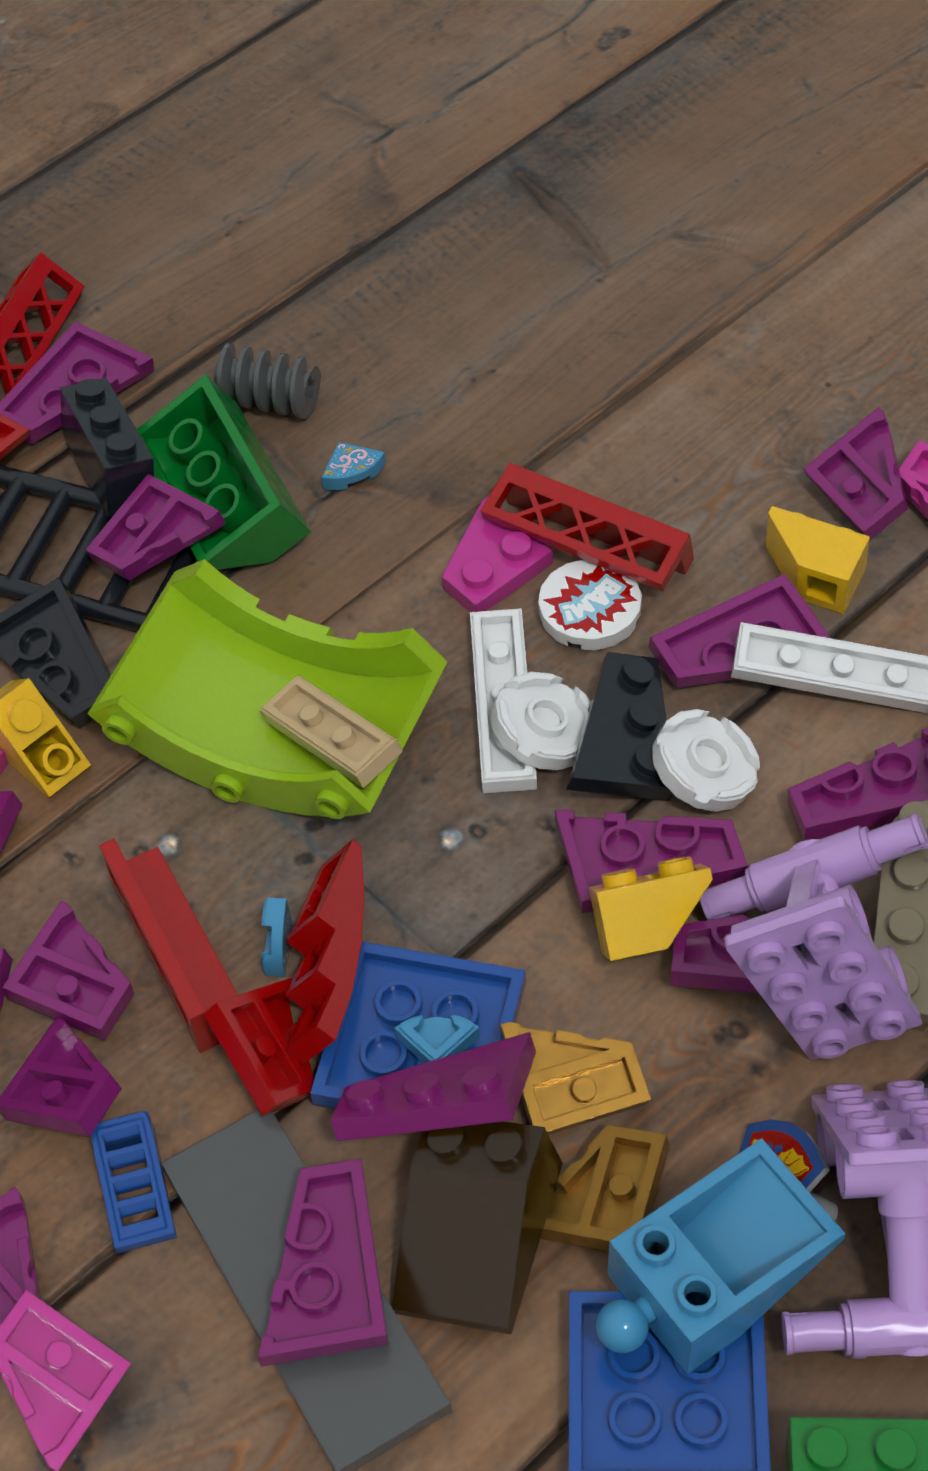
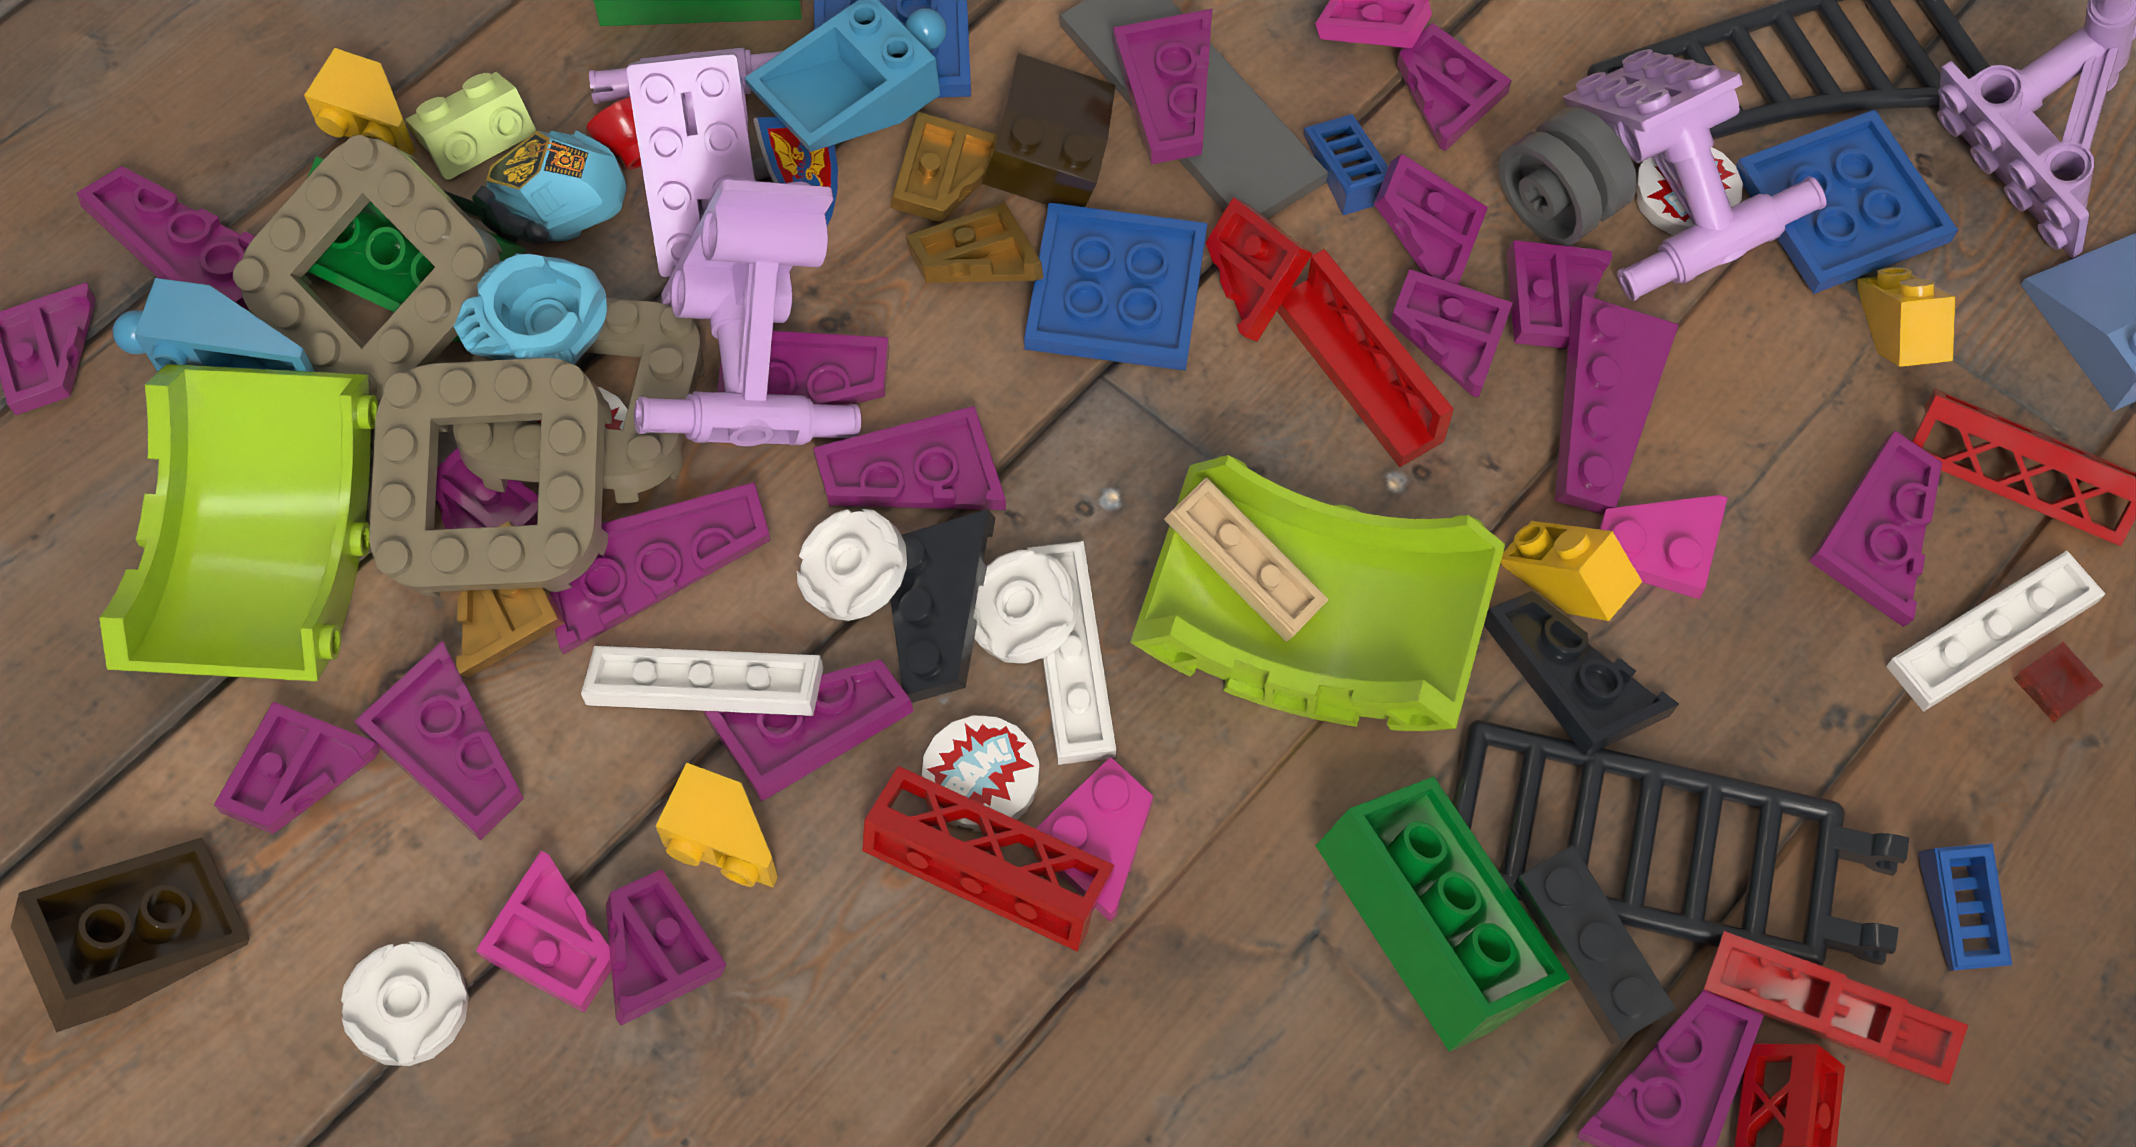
camera: 170 degrees right, 10 degrees up
(151, 528) = (1500, 811): magenta wing -> none
(268, 384) = (1418, 1082): dark grey piece -> none
(279, 924) = (1266, 375): dark azure tile -> none
(330, 940) = (1212, 361): red slope -> none
(351, 465) = (1284, 969): dark azure tile -> none
(437, 1036) = (1098, 264): dark azure tile -> none
(439, 1094) = (1086, 188): magenta wing -> none
(647, 910) = (907, 390): yellow slope -> none

